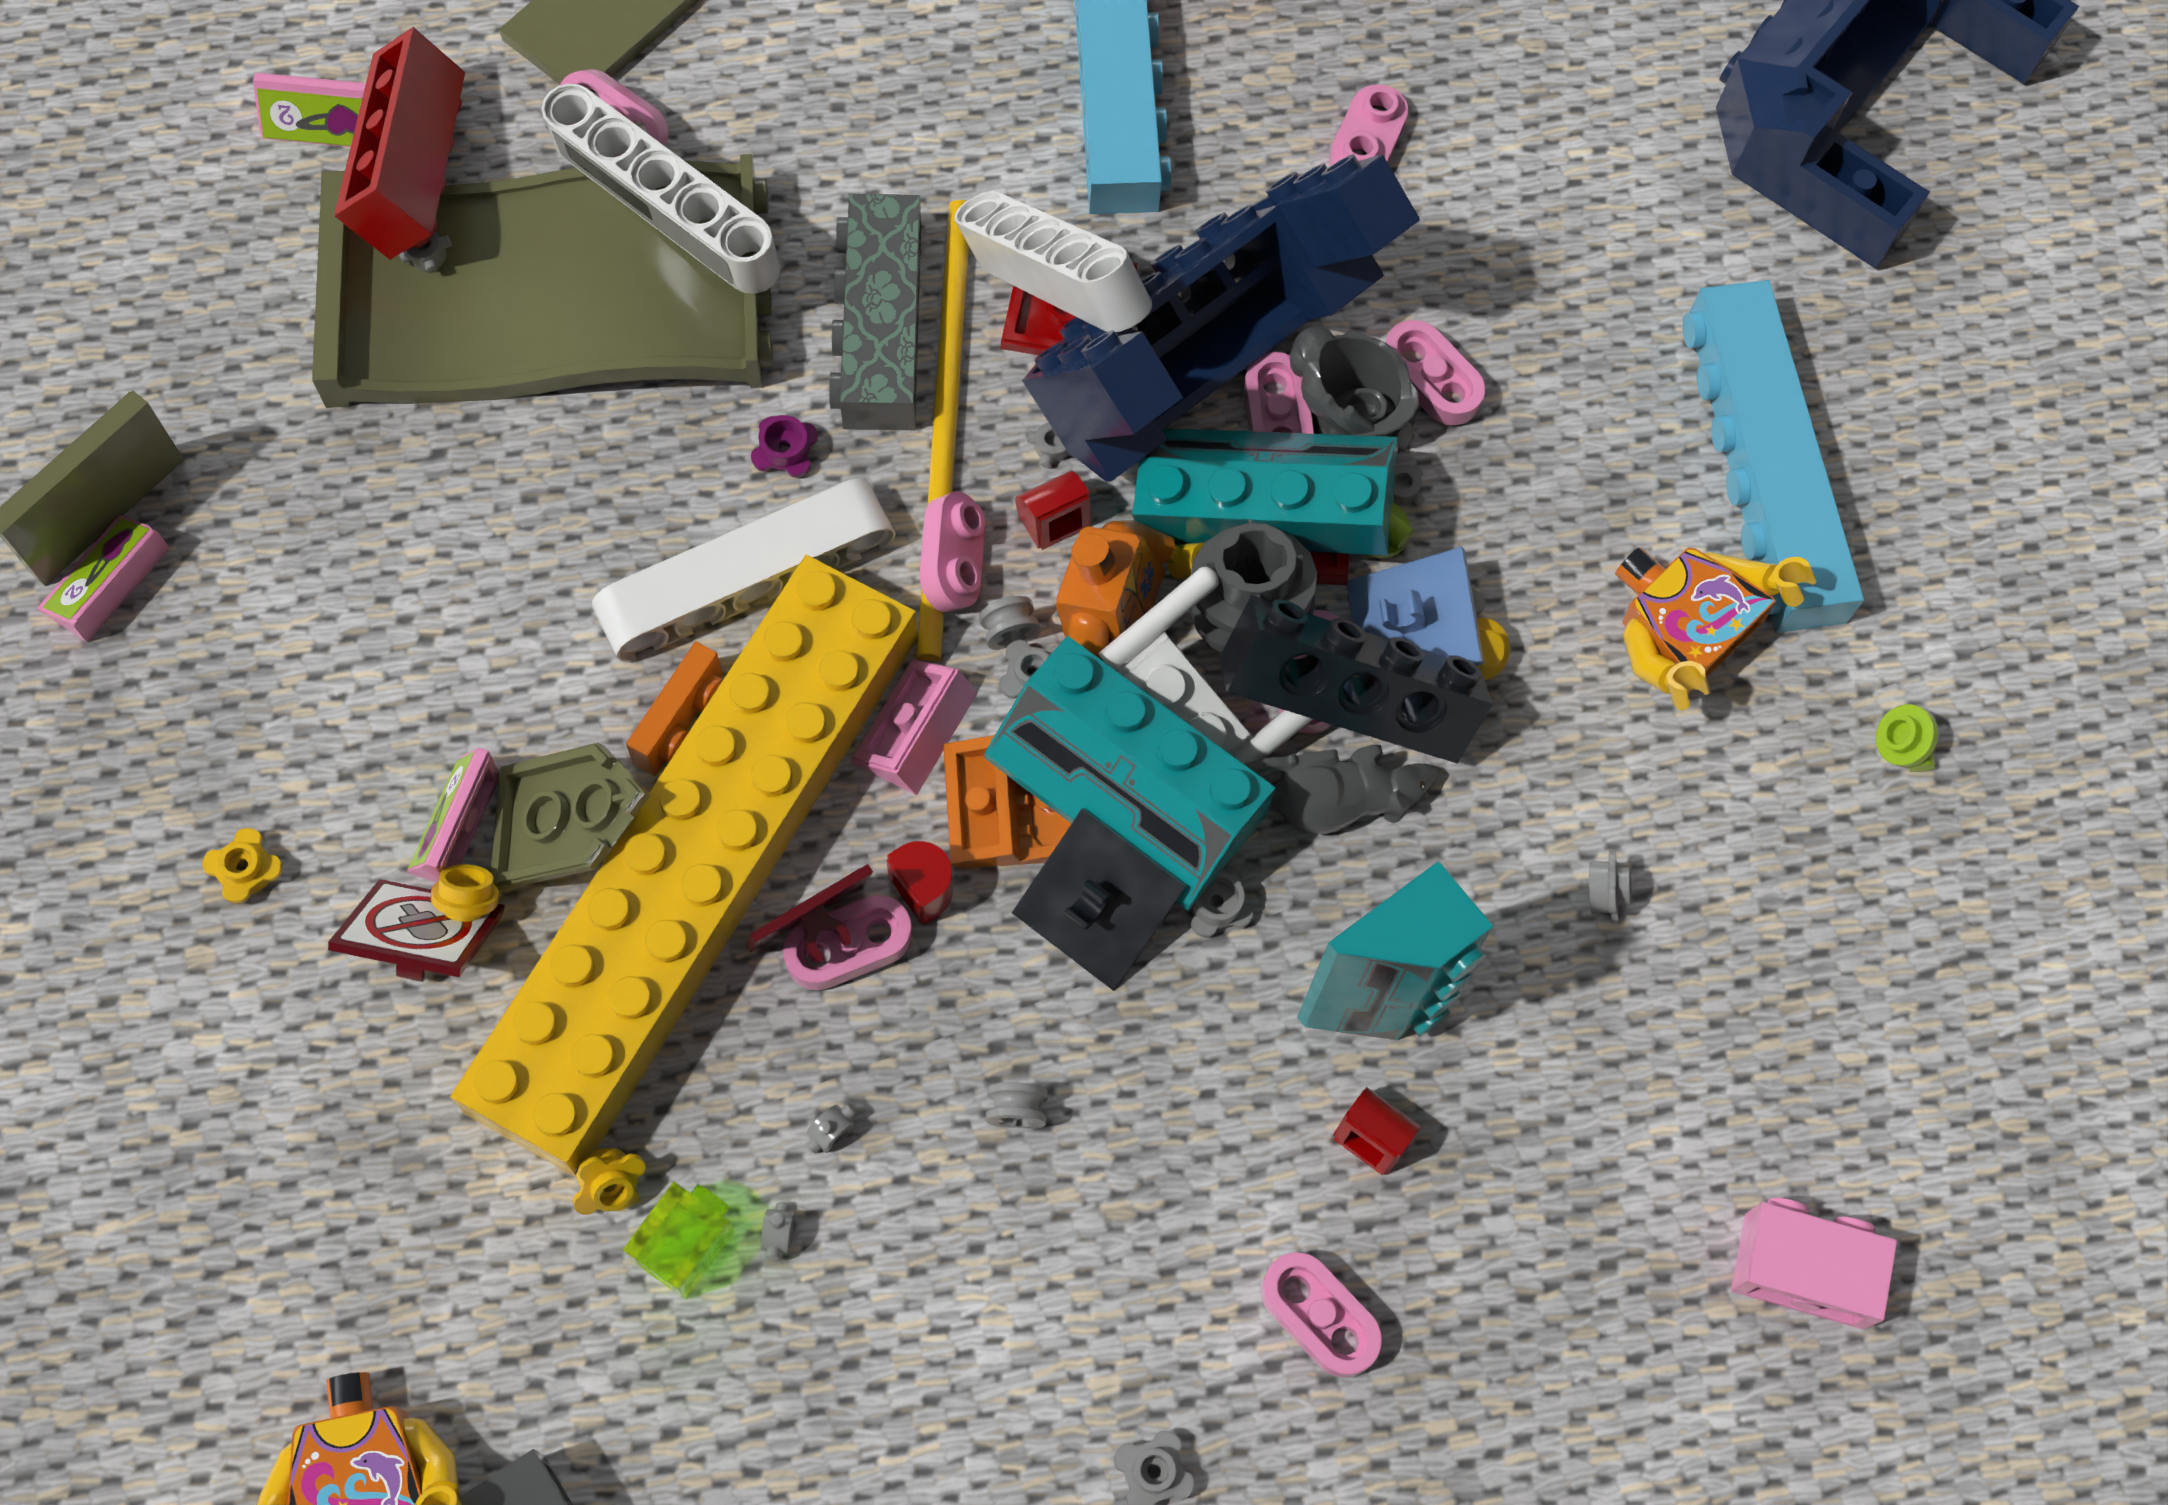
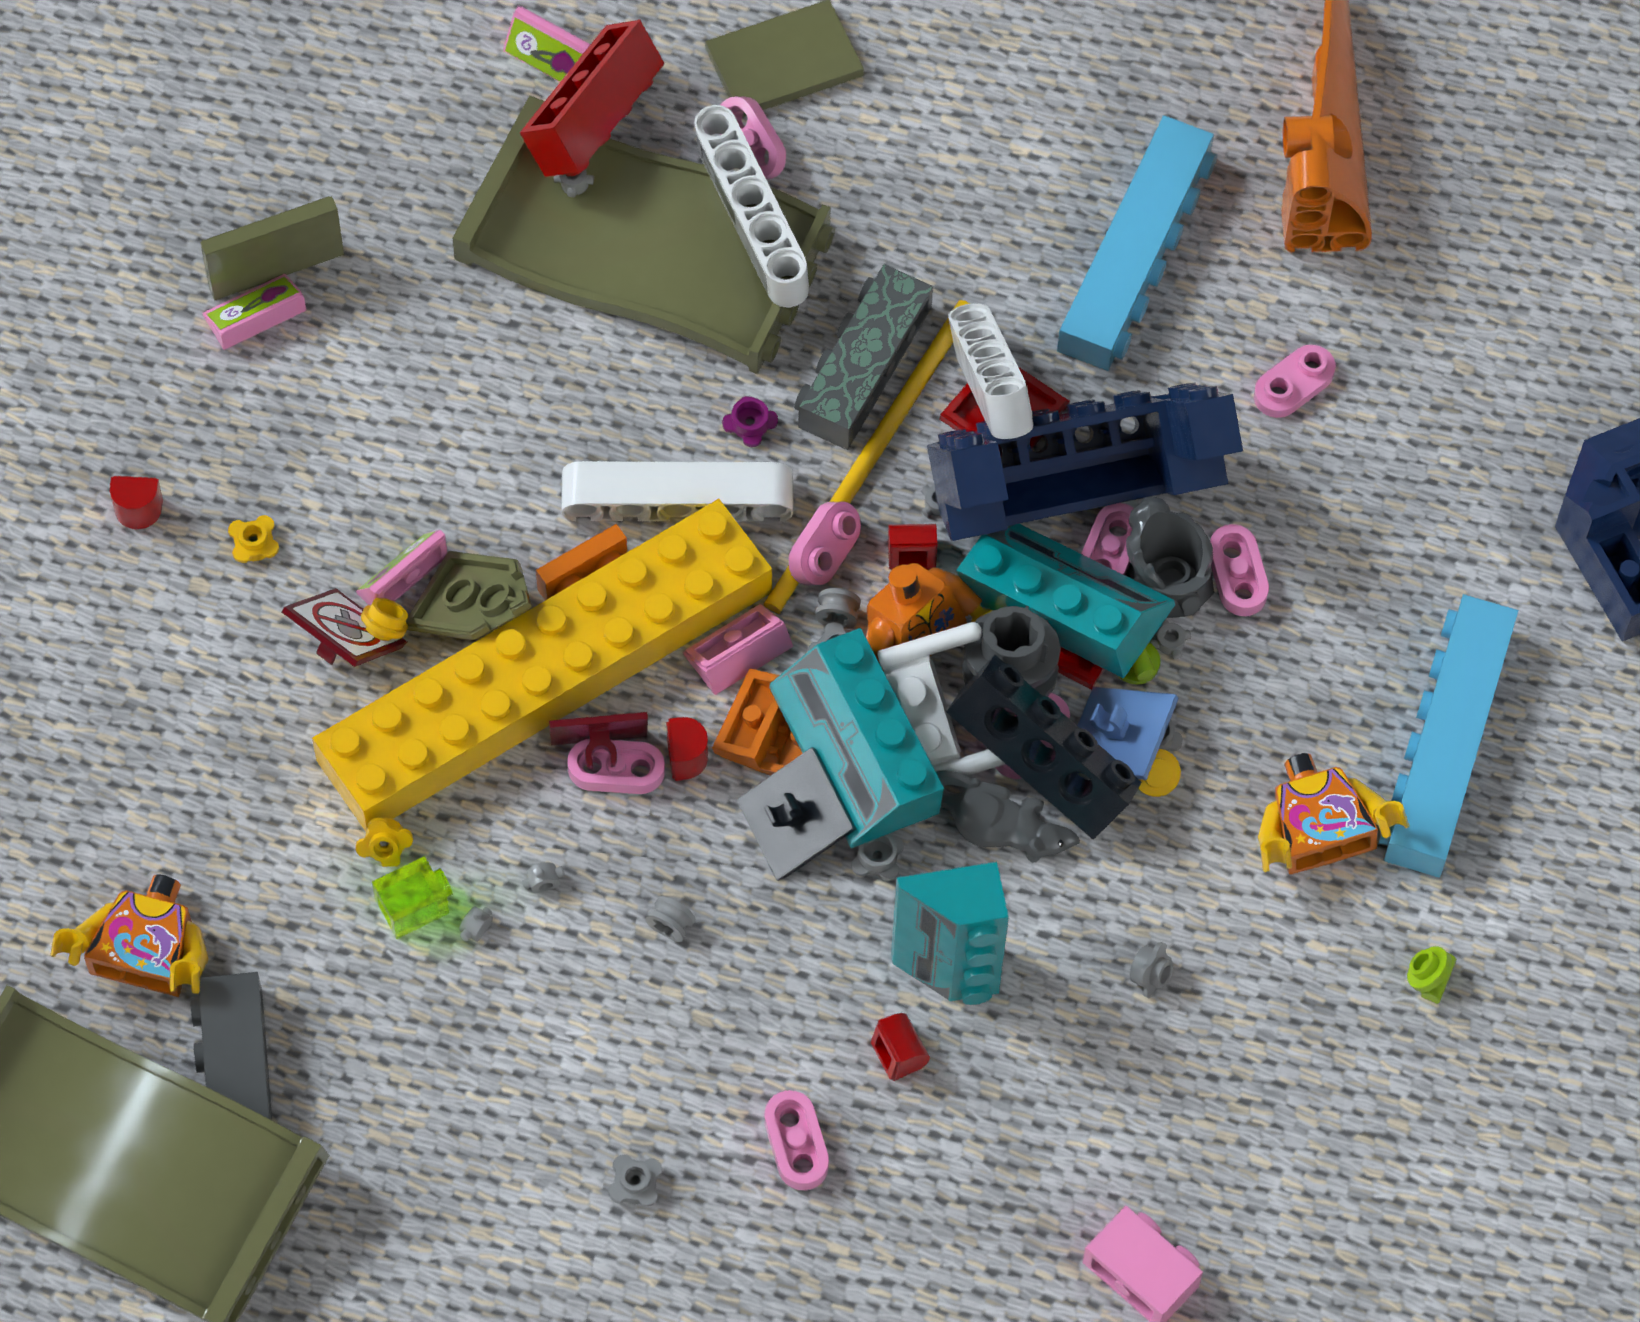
camera: 30 degrees right, 5 degrees down
(63, 886) = (136, 500): none -> red brick

